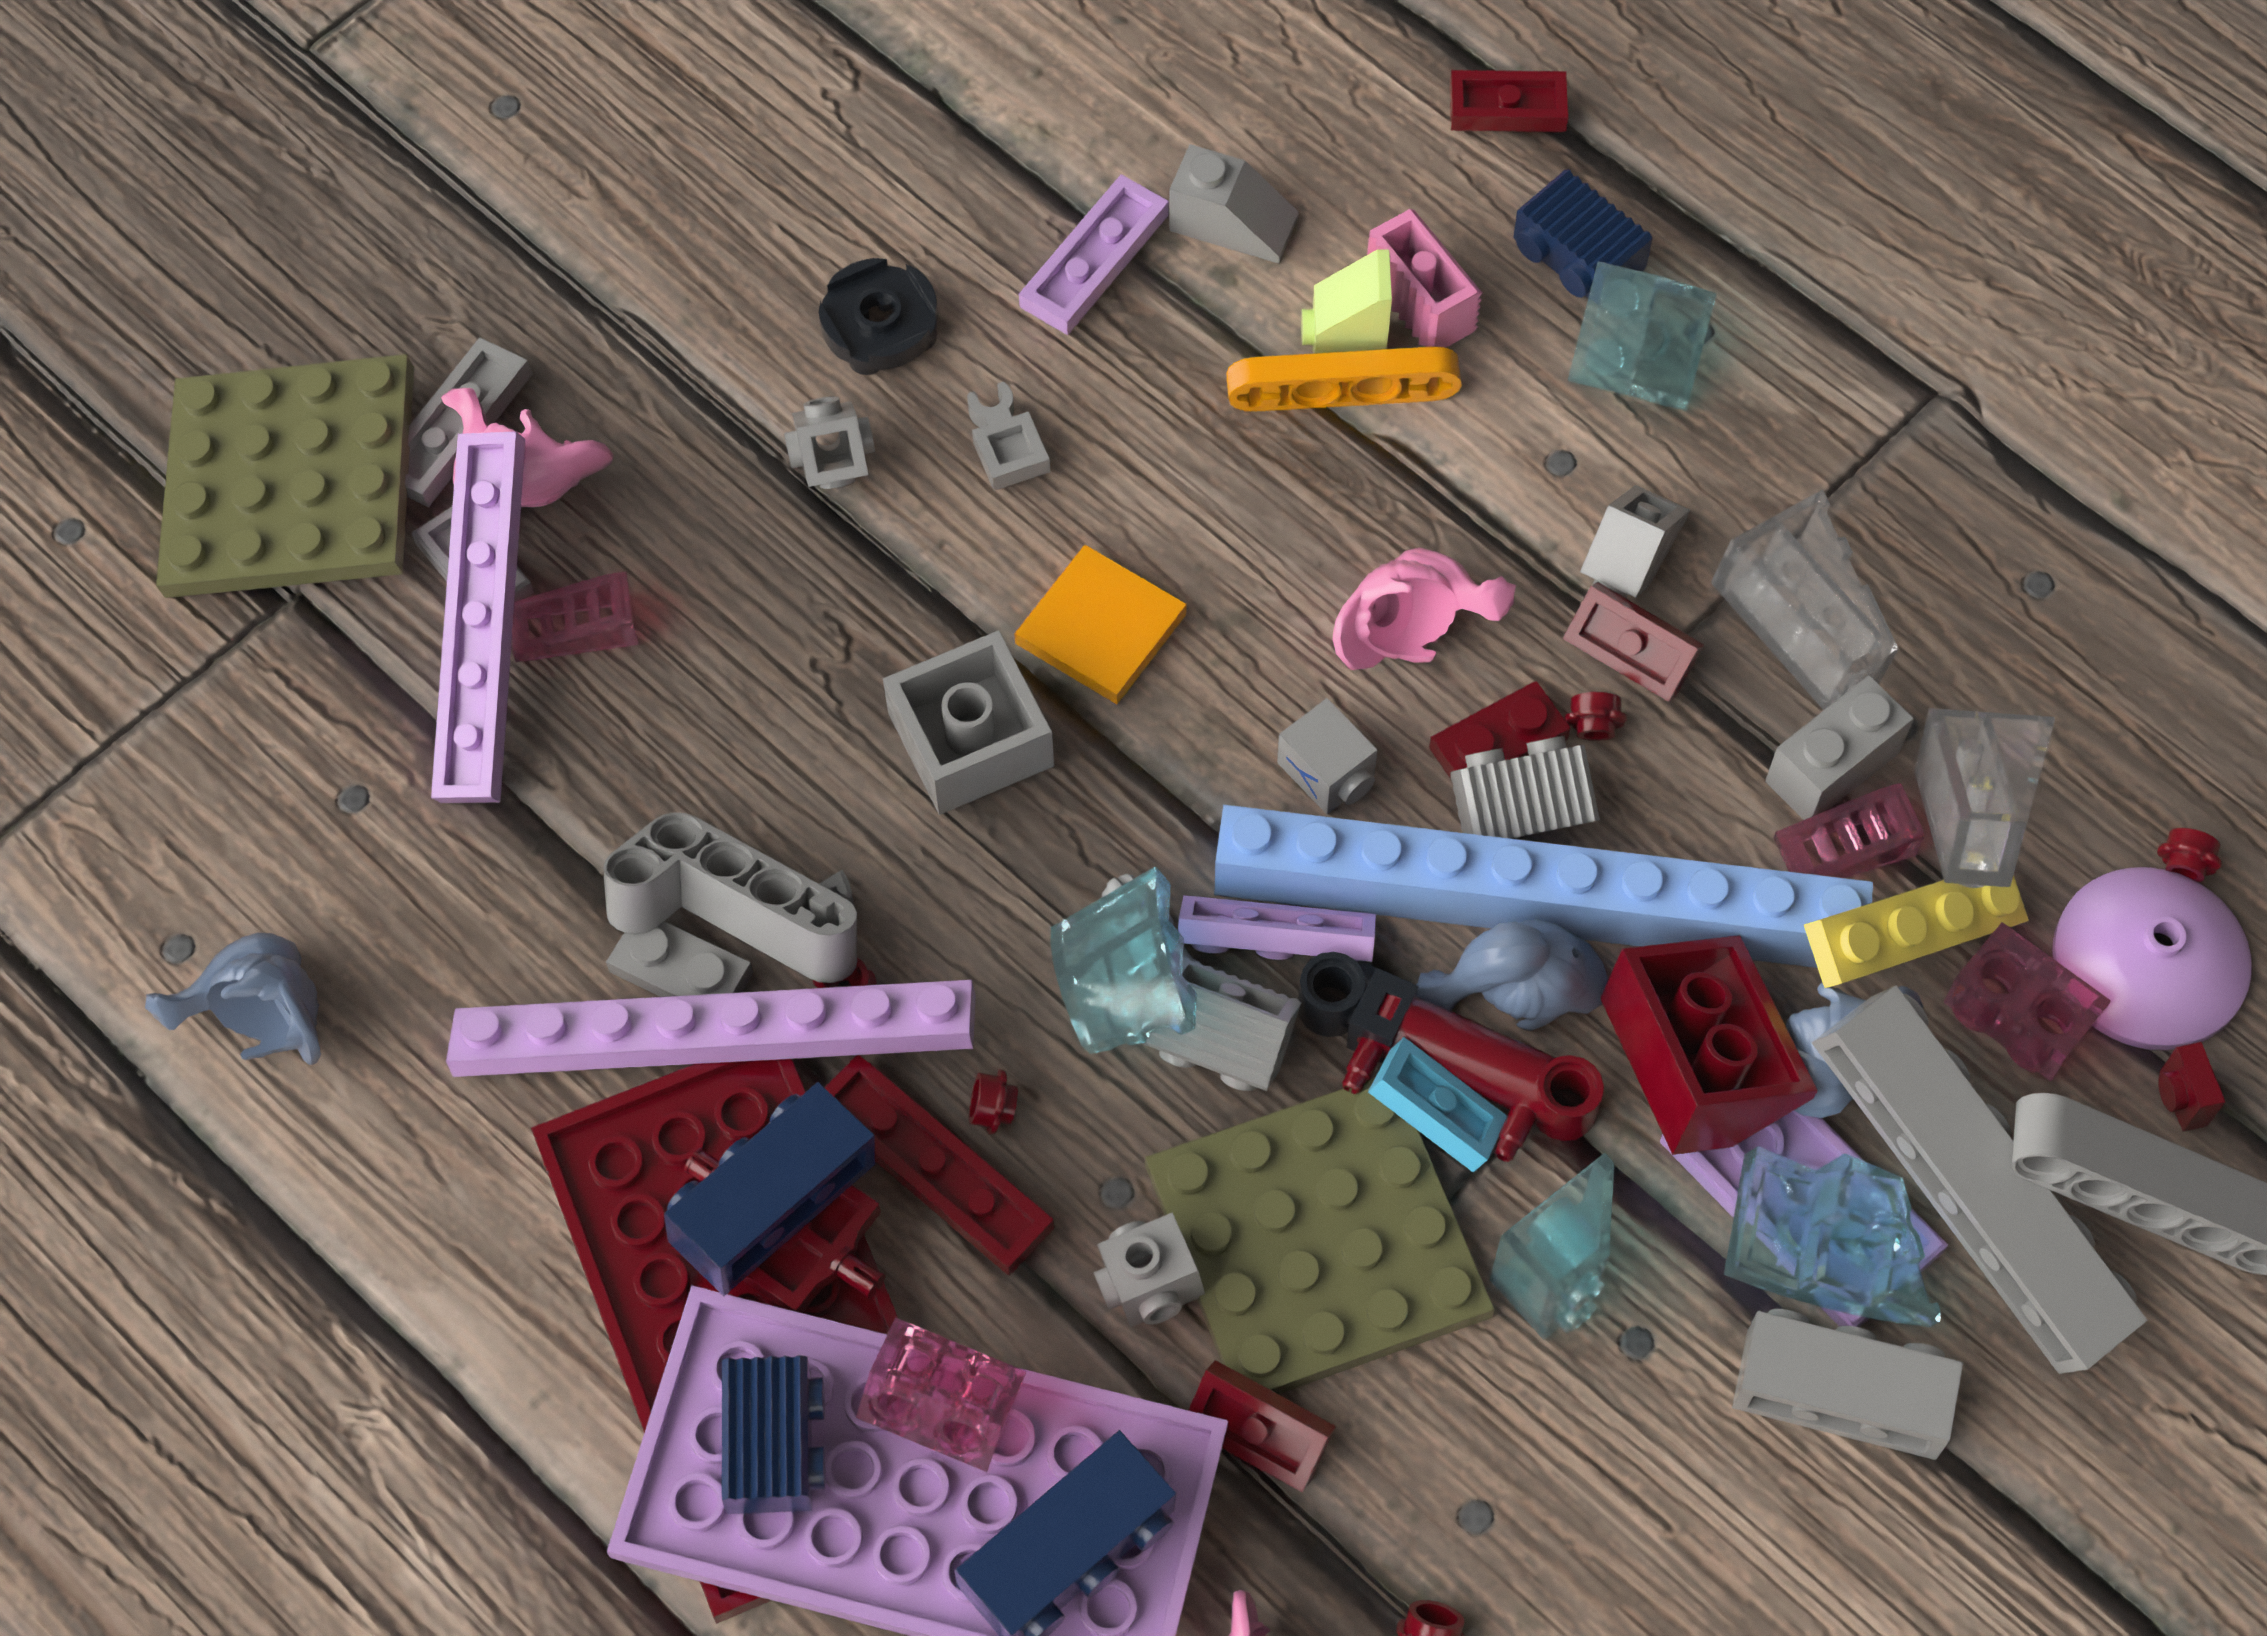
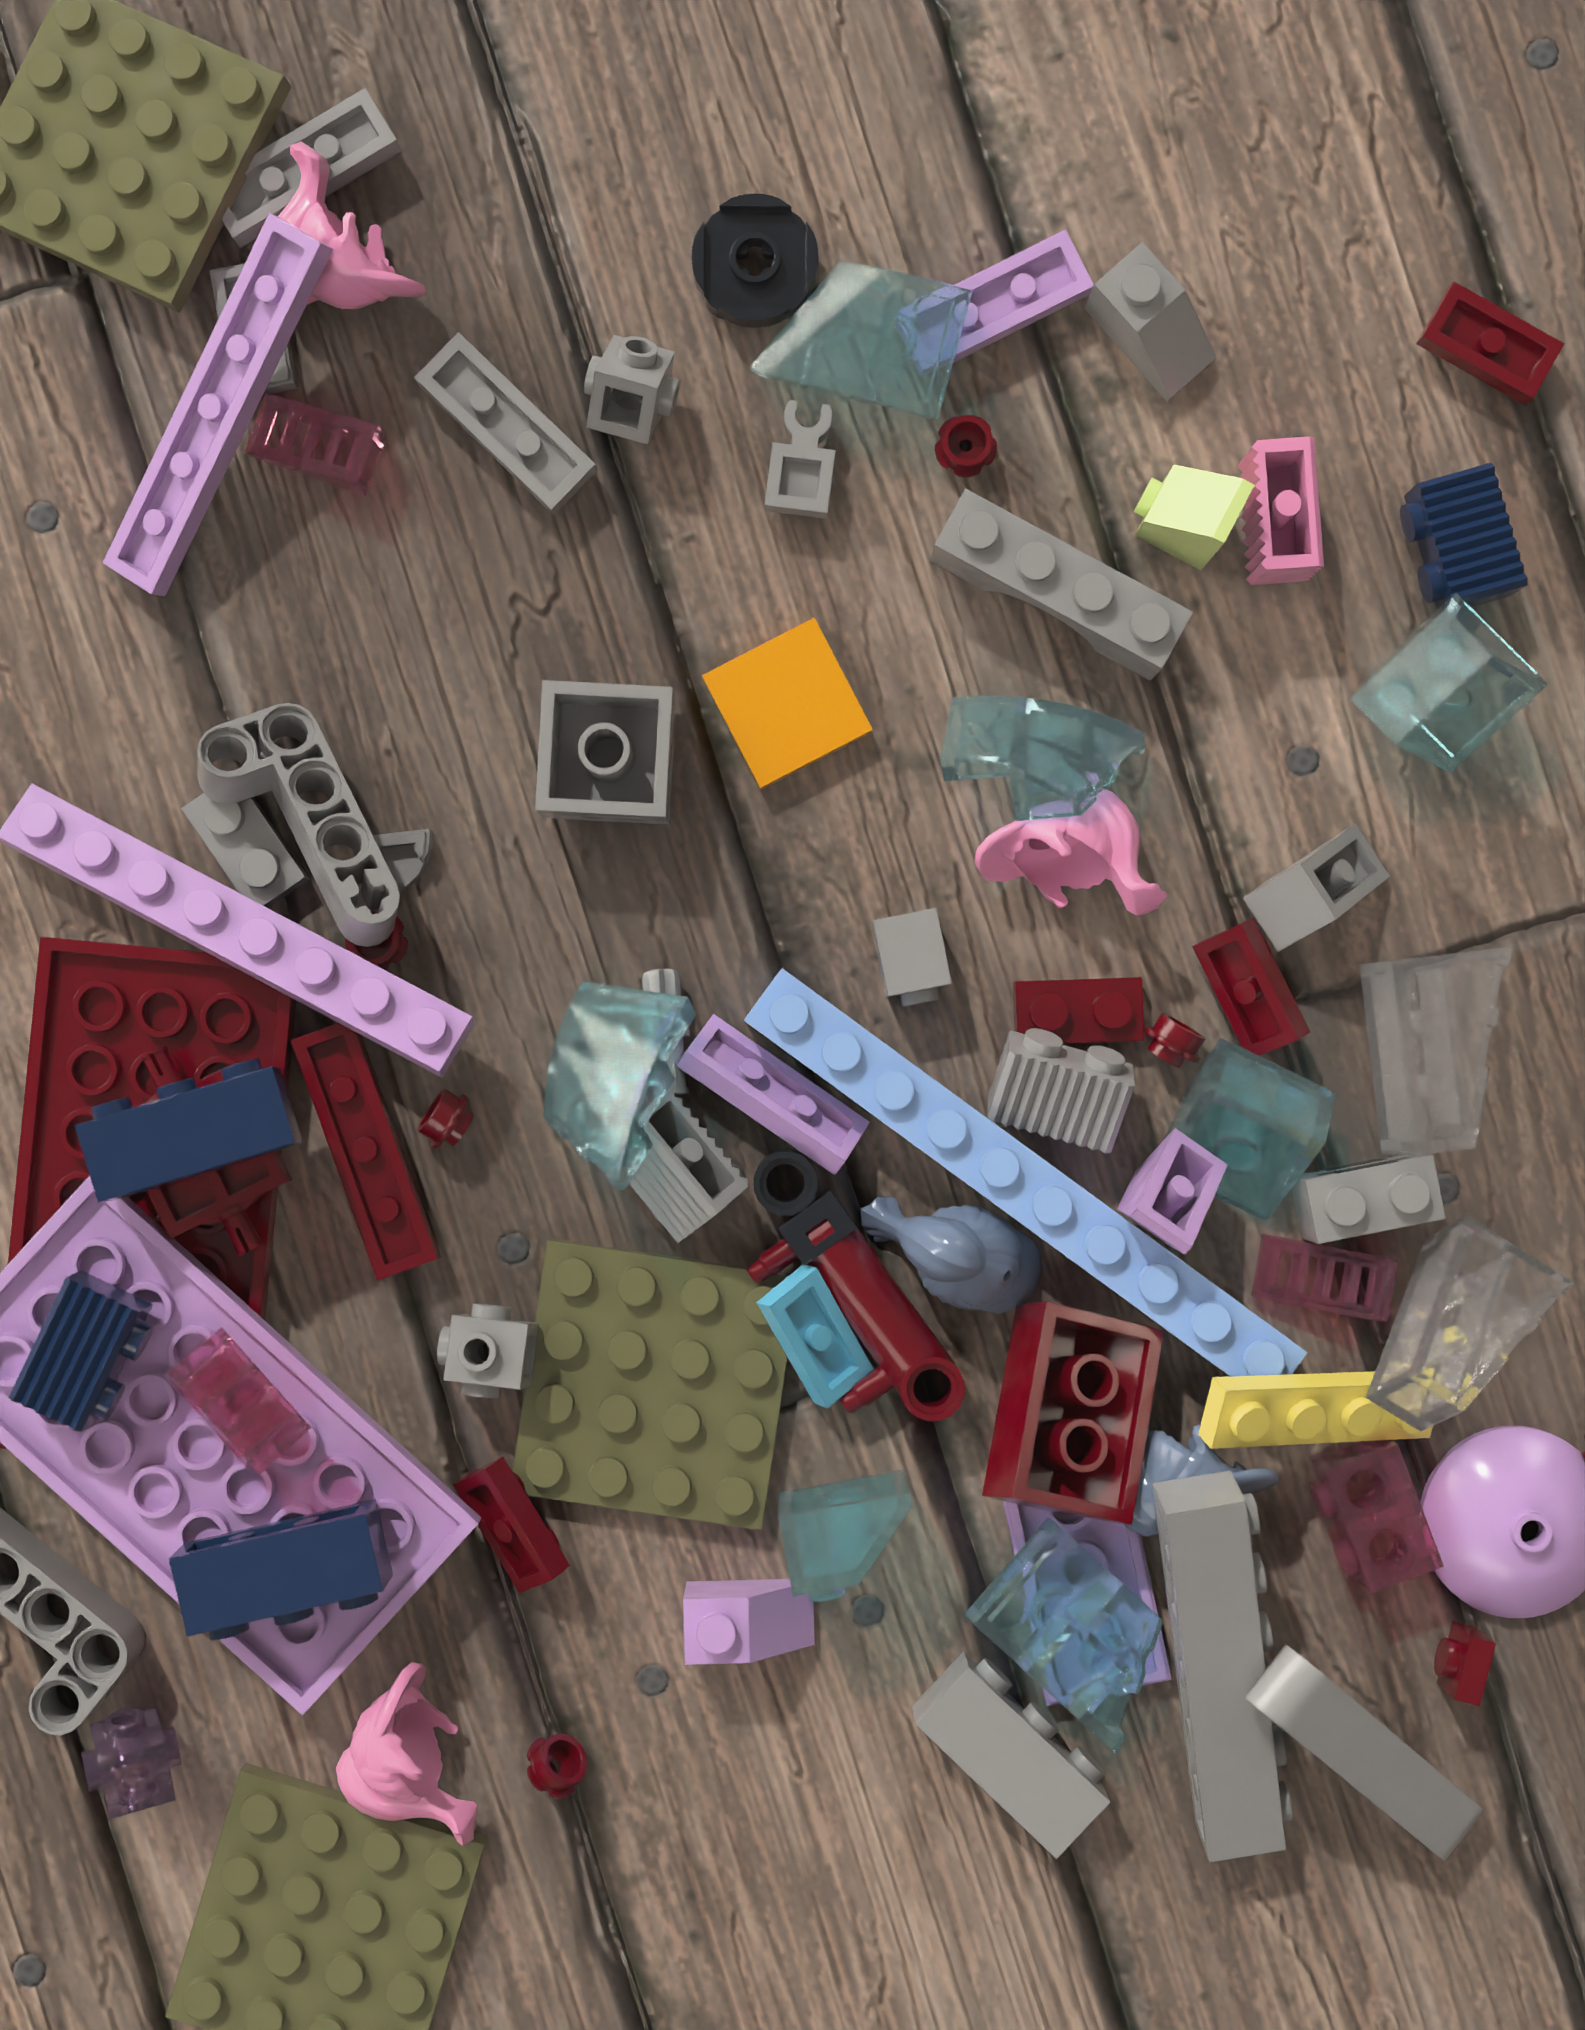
camera: 25 degrees right, 25 degrees up
(735, 526) = (506, 423): none -> light grey plate
(1011, 319) = (872, 339): none -> clear light blue slope
(1133, 350) = (970, 429): none -> dark red plate
(1343, 379) = (1204, 594): light orange beam -> none
(1343, 416) = (1095, 600): none -> light grey arch
(1350, 538) = (1049, 749): none -> clear light blue slope
(1525, 1396) = (744, 1621): none -> lavender slope
(1672, 816) = (1173, 1190): none -> lavender slope
(1702, 754) = (1255, 1121): none -> clear light blue slope

